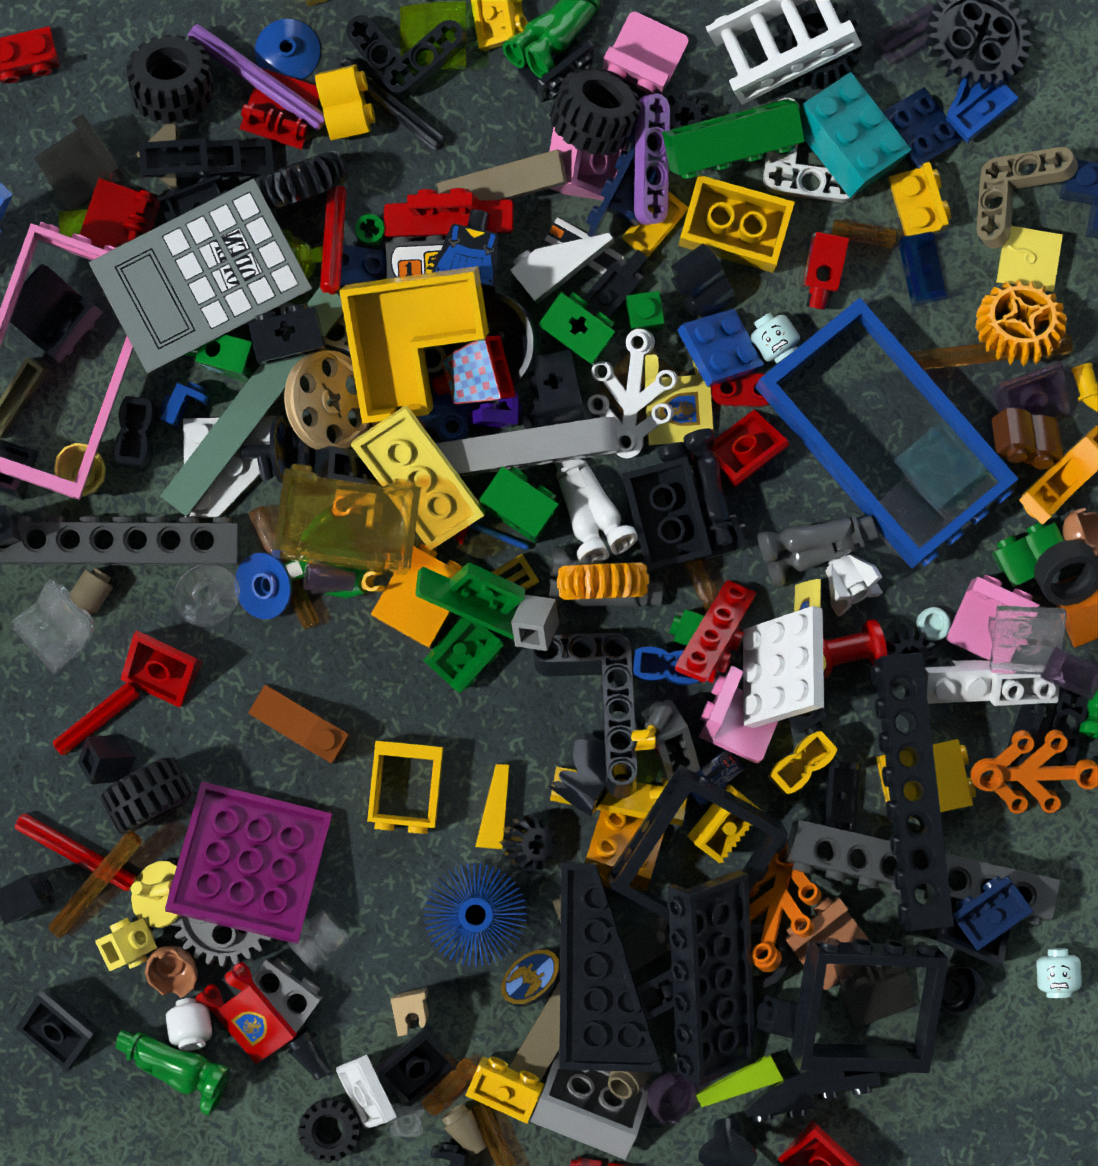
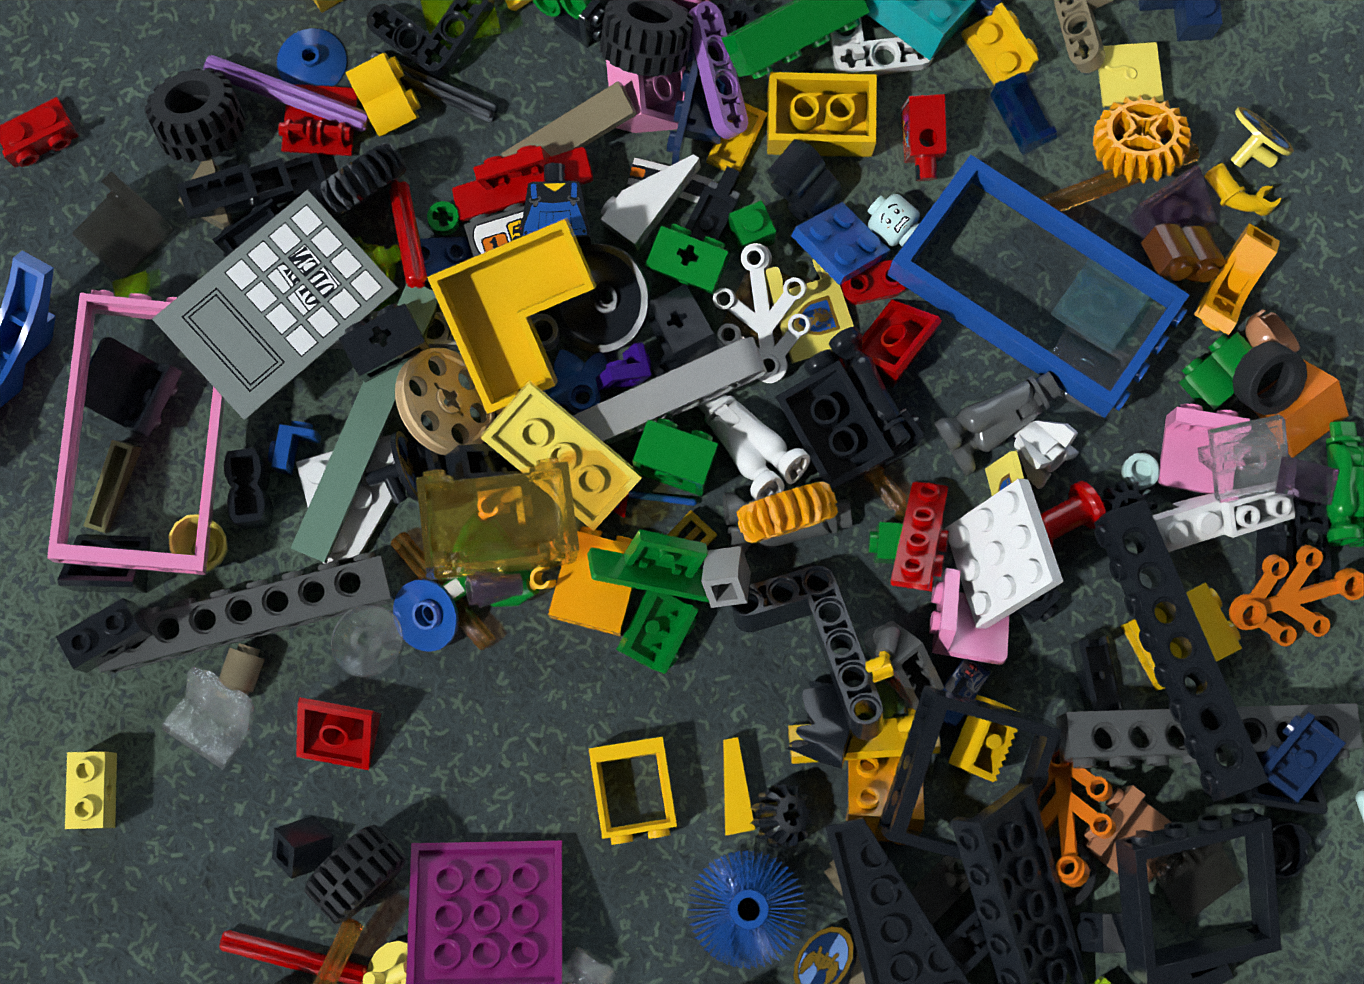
camera: 15 degrees left, 5 degrees down
(95, 718) = (280, 806): red axle -> none
(118, 214) = (174, 265): red hinge -> none
(227, 357) = (326, 384): green torso -> none
(299, 724) = (502, 753): dark orange slope -> none
(476, 373) = (593, 332): torso -> none
(656, 664) = (867, 587): blue brick -> none
(809, 755) = (1052, 642): yellow brick -> none
(864, 234) = (959, 93): clear orange axle -> none

